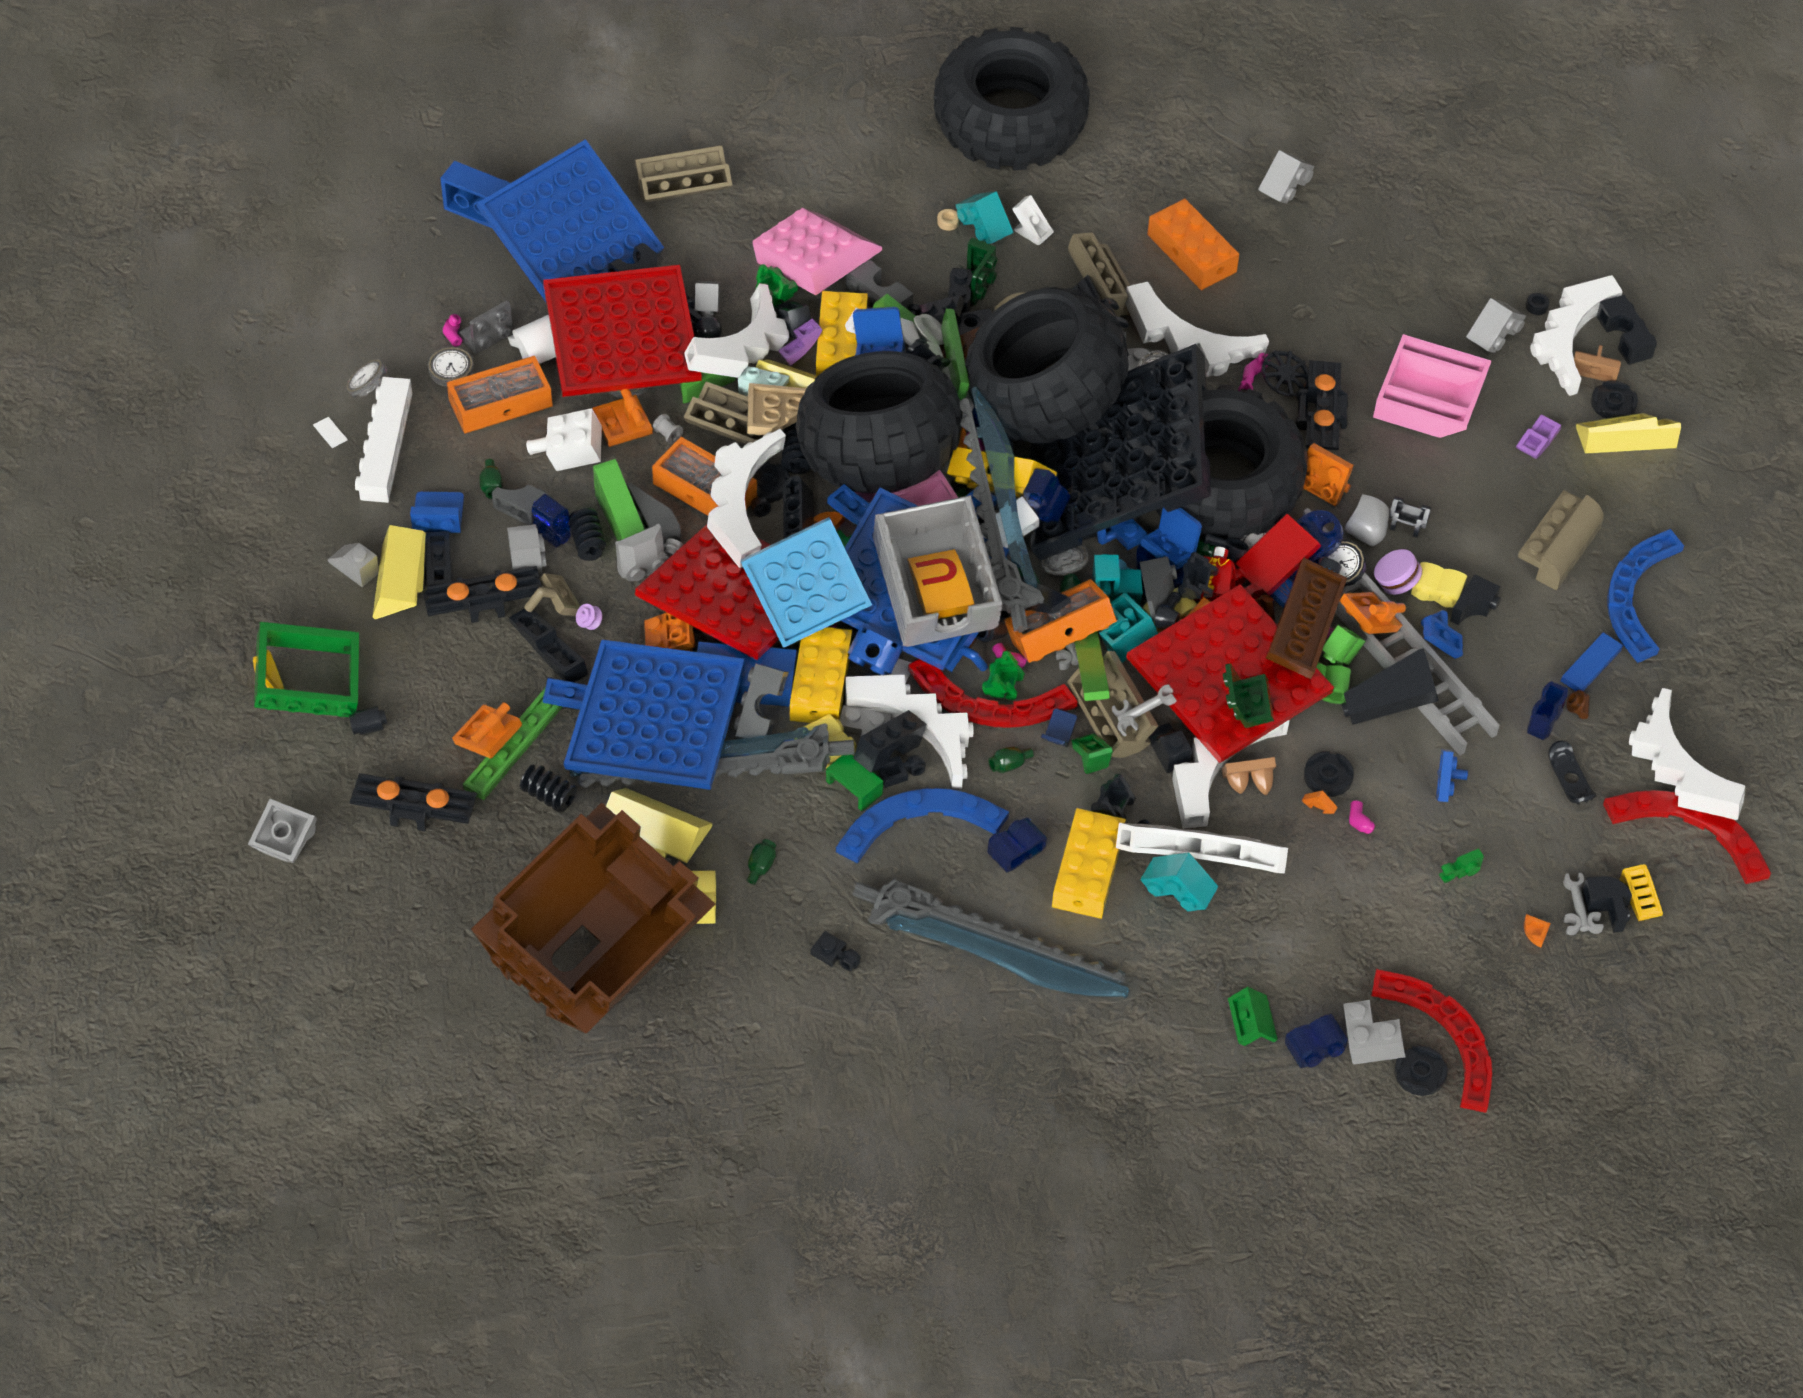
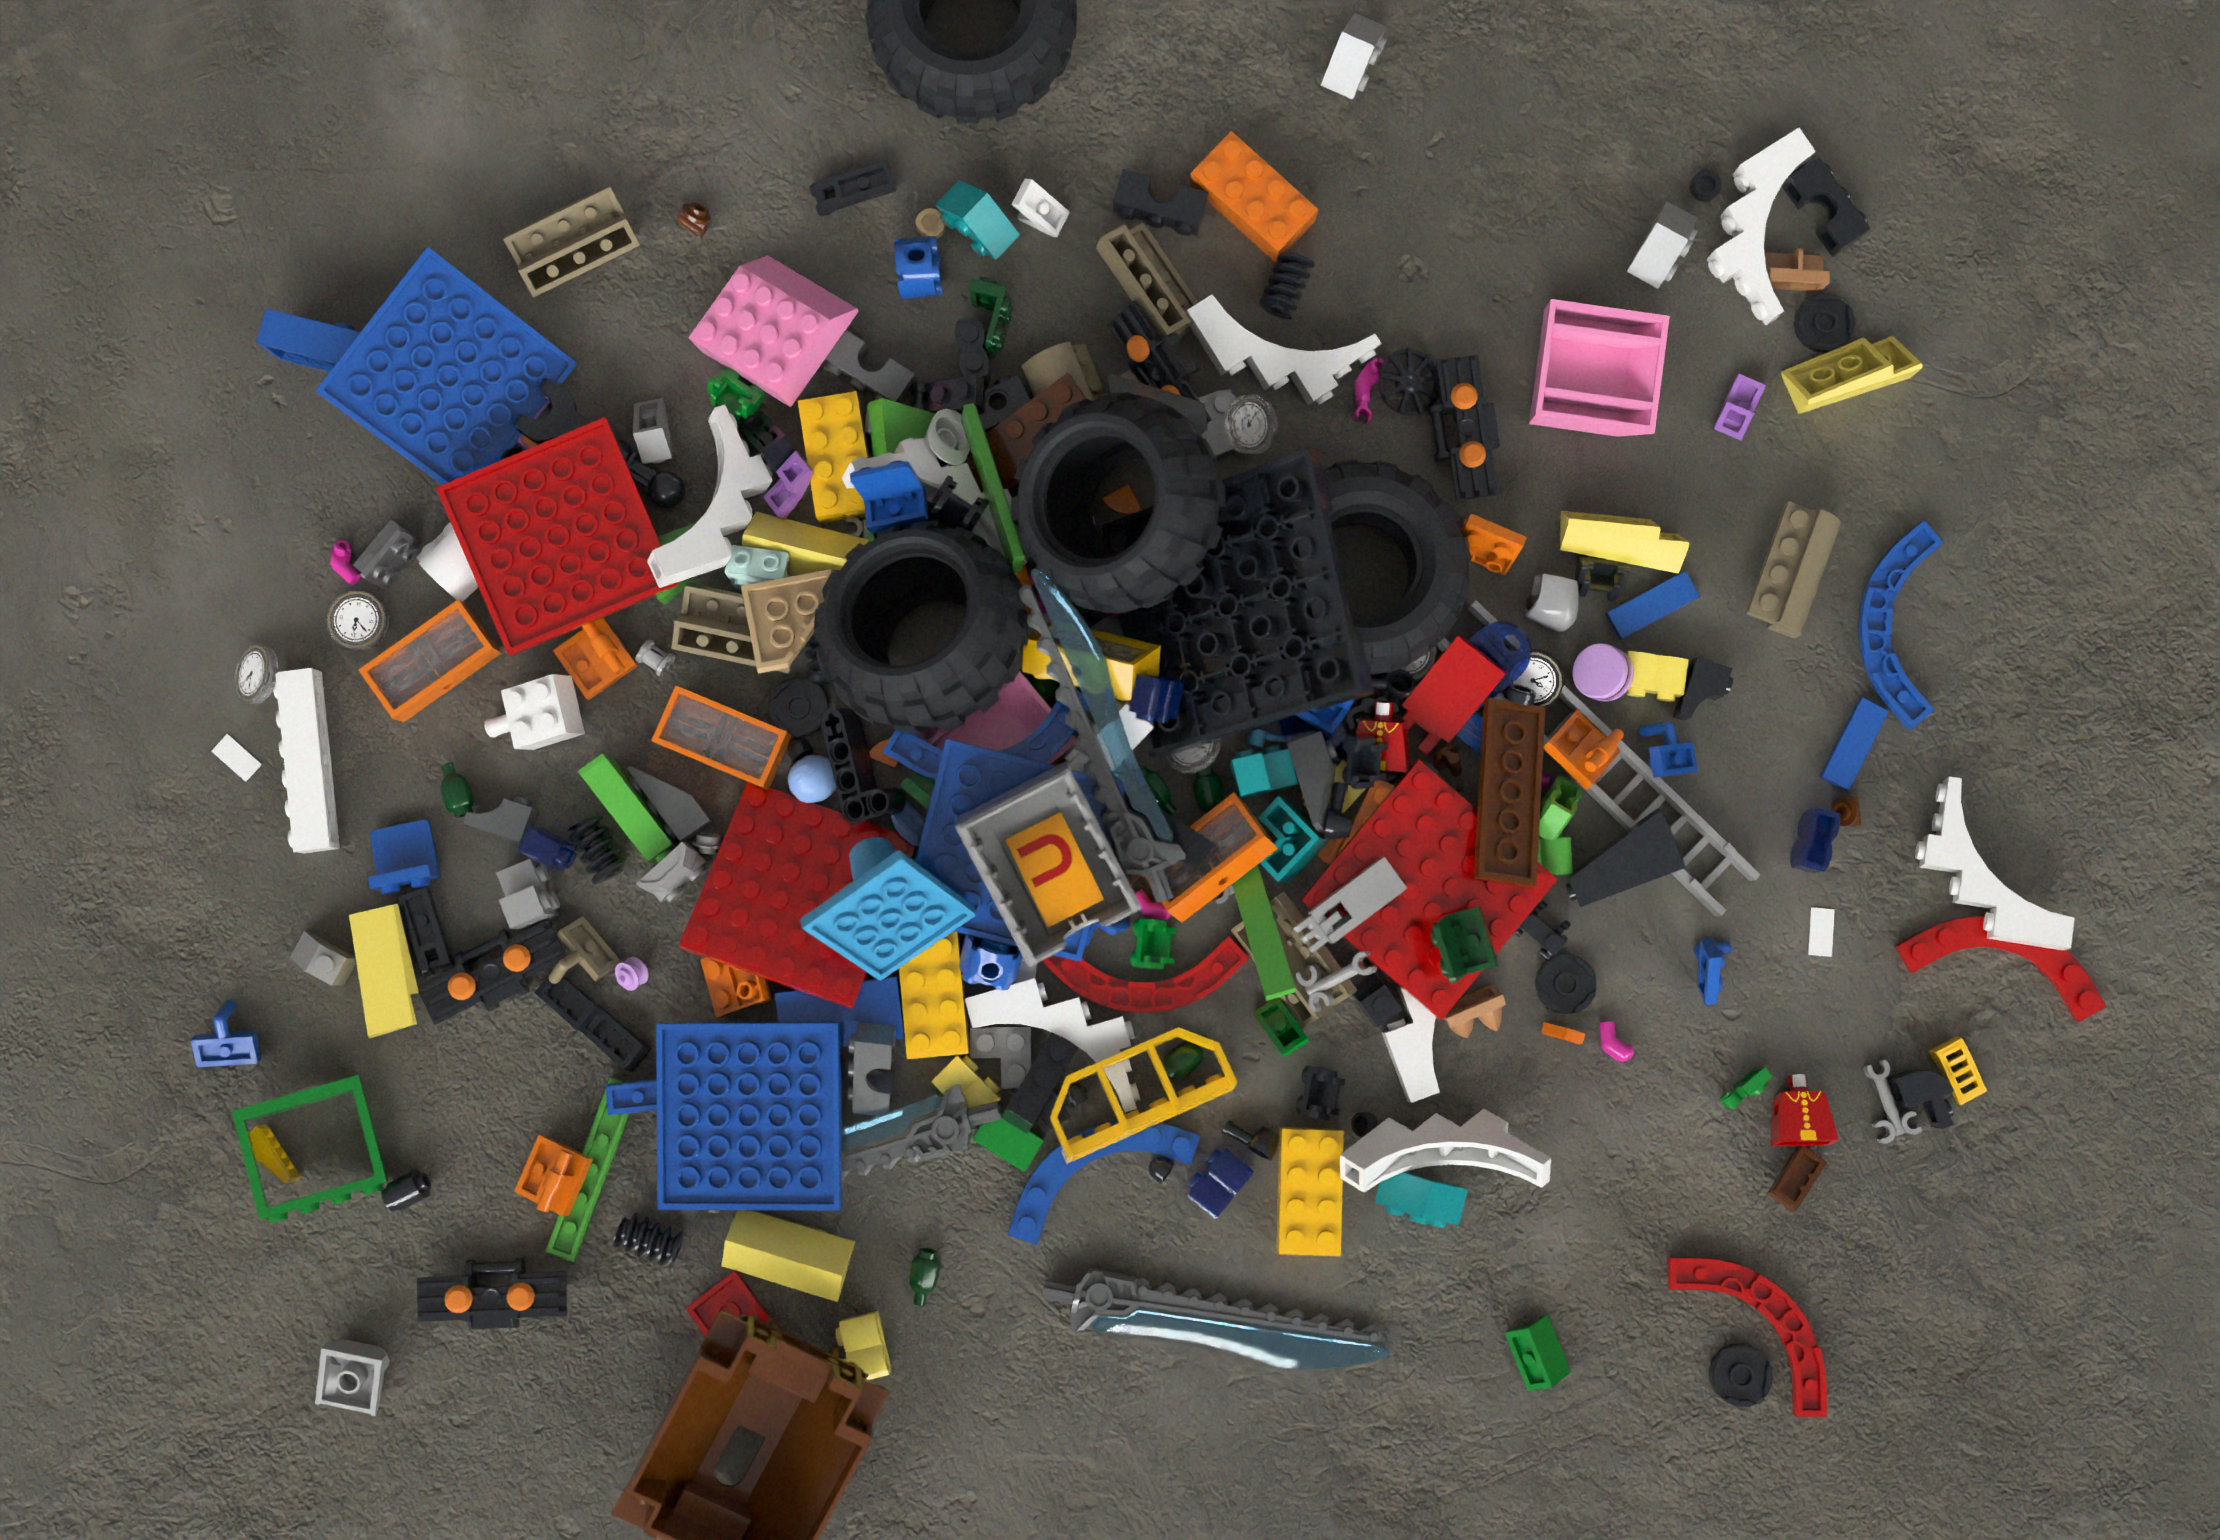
camera: 10 degrees left, 30 degrees up
(260, 600) = (224, 1046): none -> plate
(737, 467) = (761, 728): white arch -> none
(766, 522) = (811, 779): none -> light blue hair
(774, 183) = (694, 218): none -> reddish brown plate
(830, 949) = (1032, 1375): black plate -> none
(896, 187) = (853, 187): none -> black plate
(933, 234) = (918, 267): none -> blue brick
(969, 783) = (1160, 1110): none -> yellow plate
(972, 828) = (1160, 1168): none -> black hinge
(1056, 828) = (1262, 1143): none -> black bar
(1060, 727) = (1235, 1005): dark blue bracket -> none
(1135, 244) = (1181, 214): none -> black arch
(1176, 651) = (1360, 898): none -> light grey hinge
(1205, 298) = (1283, 284): none -> black piece
(1314, 725) = (1543, 933): none -> black piece
(1316, 1041) = (1618, 1372): clear blue brick -> none
(1371, 1040) = (1678, 1362): light grey brick -> none
(1430, 488) = (1622, 540): none -> light yellow slope
(1447, 545) = (1652, 605): none -> blue tile
(1493, 937) = (1797, 1178): none -> reddish brown plate
(1504, 894) = (1801, 1116): none -> red torso
(1536, 929) = (1845, 1151): orange tile -> none
(1544, 783) = (1821, 932): none -> white sticker
(1564, 762) = (1866, 940): black piece -> none

